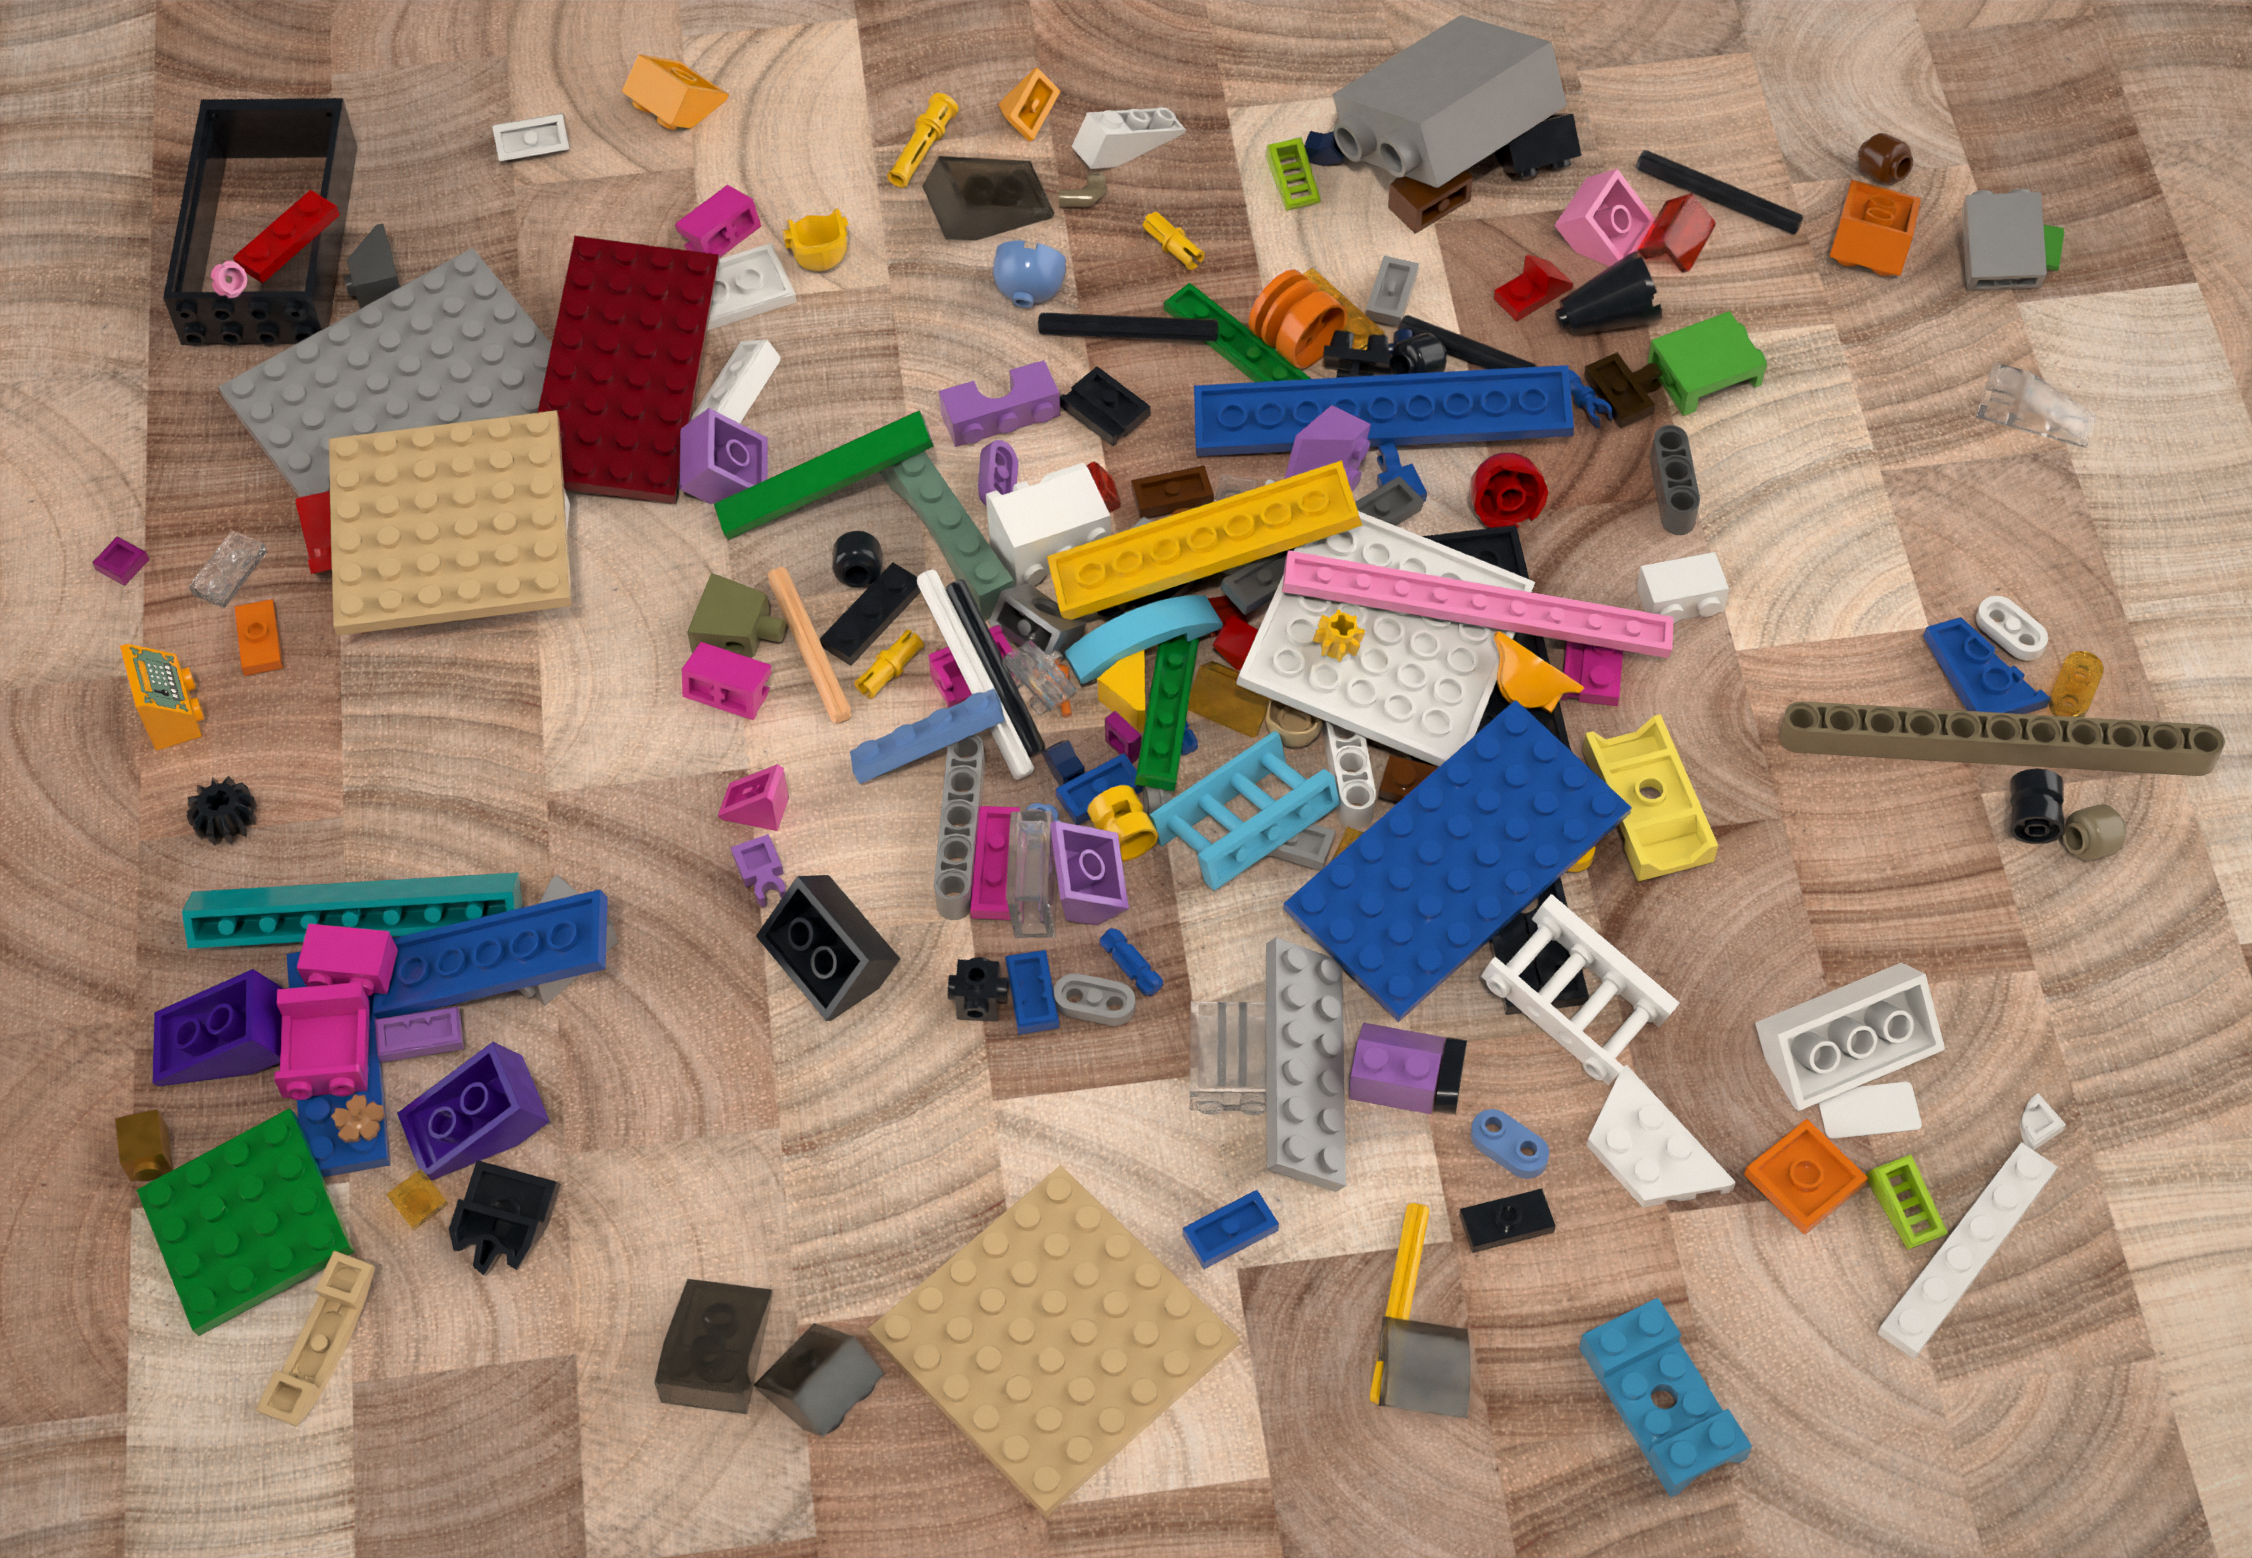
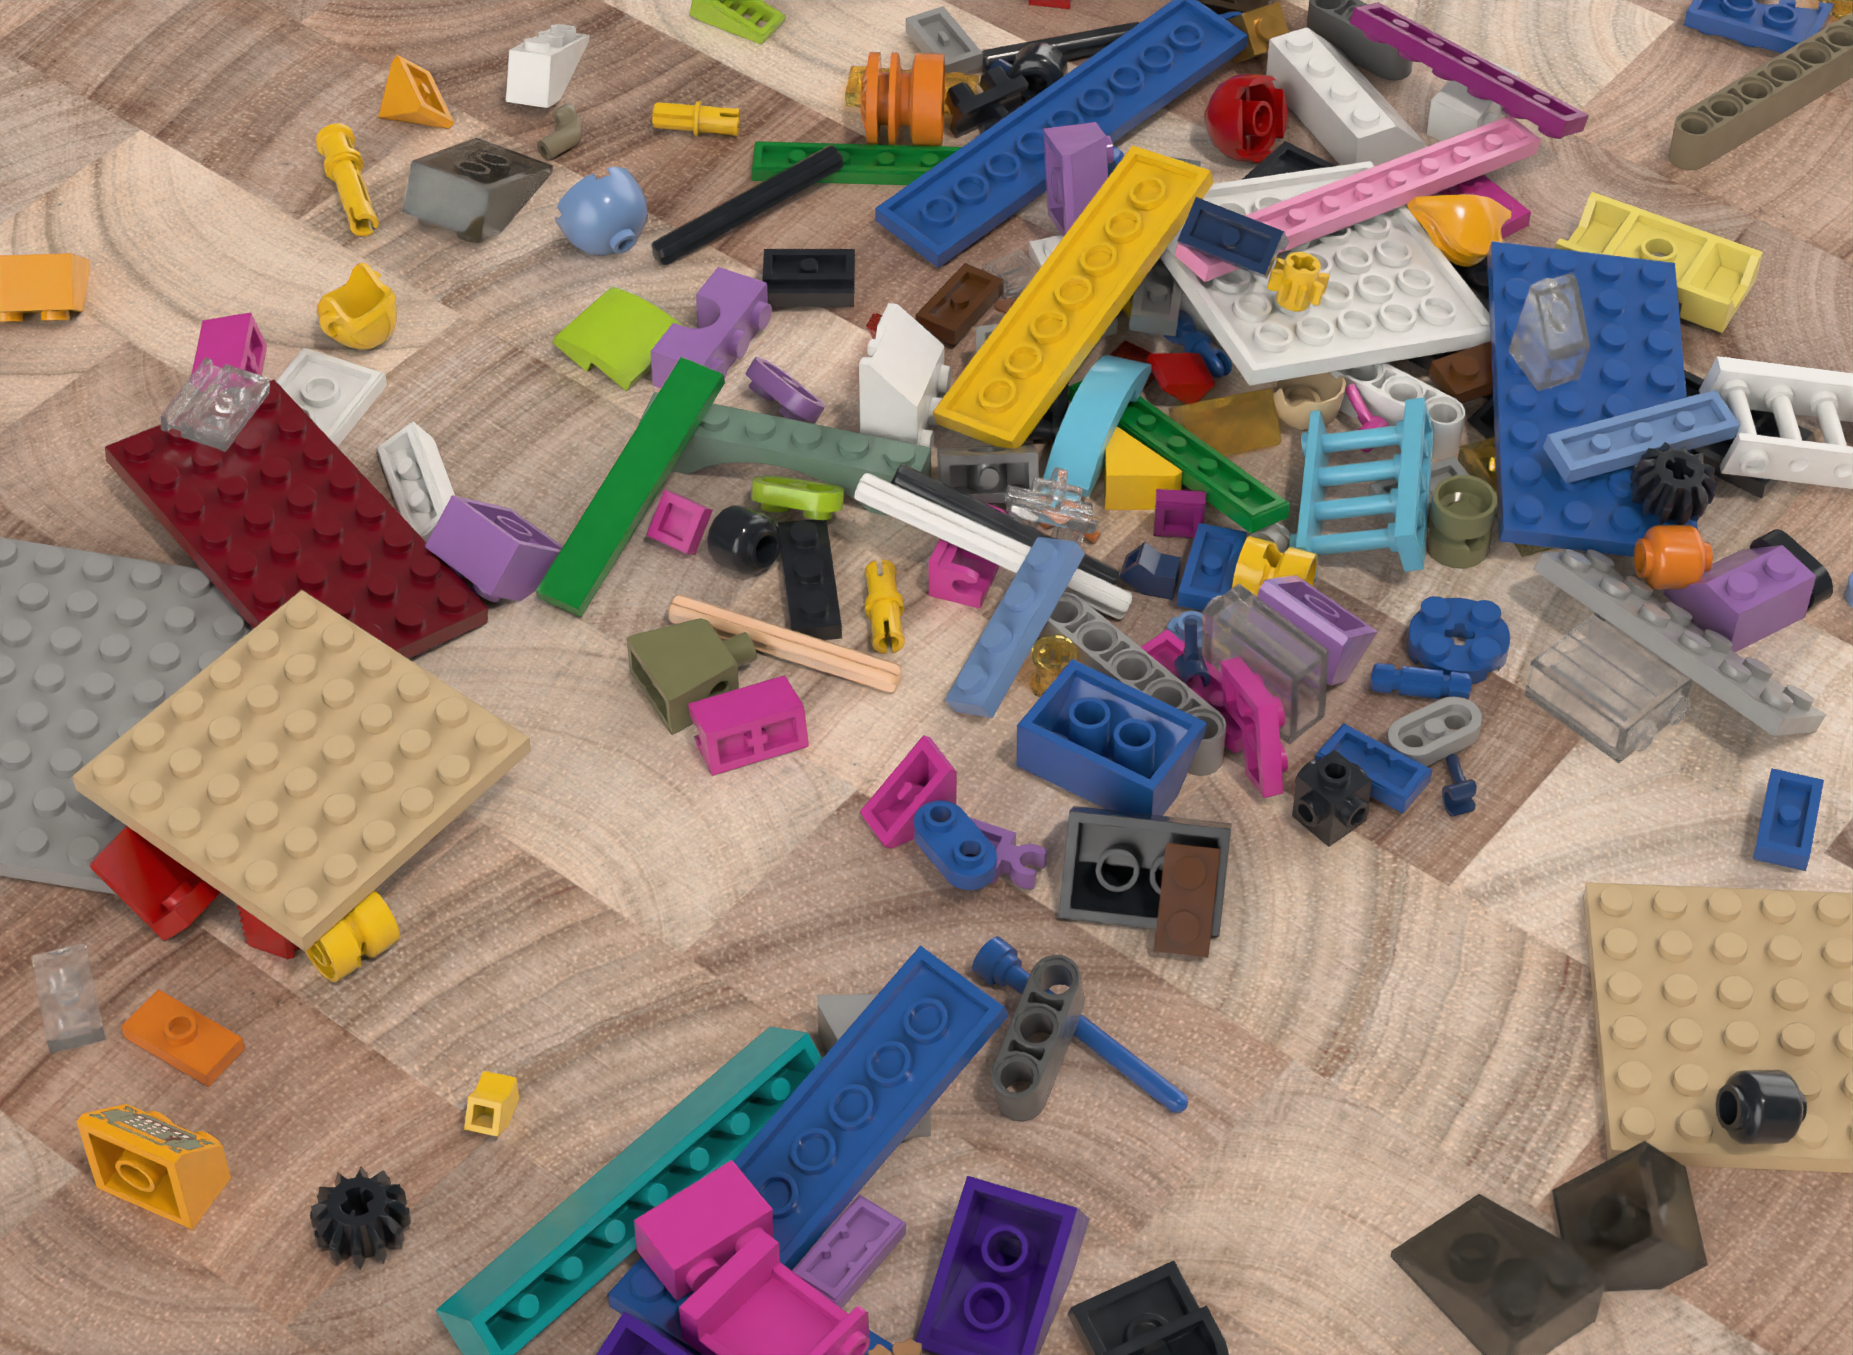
camera: 45 degrees left, 10 degrees down
(349, 801) = (492, 1104): none -> yellow piece
(396, 645) = (363, 931): none -> yellow wheel
(622, 996) = (1038, 1061): none -> dark grey beam
(651, 250) = (215, 404): none -> clear plate
(685, 936) = (999, 964): none -> blue piece
(736, 842) = (947, 836): none -> blue plate
(816, 983) = (1187, 900): none -> reddish brown plate
(837, 518) = (679, 522): none -> dark pink plate
(891, 852) = (1108, 742): none -> blue slope
(919, 549) = (782, 493): none -> lime plate
(928, 780) = (1064, 652): none -> clear yellow bush
(950, 361) = (615, 336): none -> lime slope
(956, 1377) = (1761, 1107): none -> black head
(974, 907) = (1260, 719): none -> dark pink plate
(994, 841) = (1191, 661): none -> dark blue hand
(1063, 1052) = (1458, 795): none -> dark blue hand
(1195, 932) = (1475, 621): none -> blue plate
(1277, 875) = (1461, 521): none -> olive wheel
(1310, 770) = (1364, 415): none -> dark pink hand
(1317, 573) = (1232, 237): none -> dark blue panel
(1369, 1005) = (1672, 557): none -> orange head
(1410, 972) = (1673, 484): none -> black gear
(1436, 910) = (1626, 437): none -> medium blue plate
(1443, 794) = (1551, 333): none -> clear slope
(1594, 429) = (1260, 27): none -> pearl gold brick
(1599, 525) = (1337, 101): none -> white slope
(1681, 562) = (1458, 64): none -> magenta plate

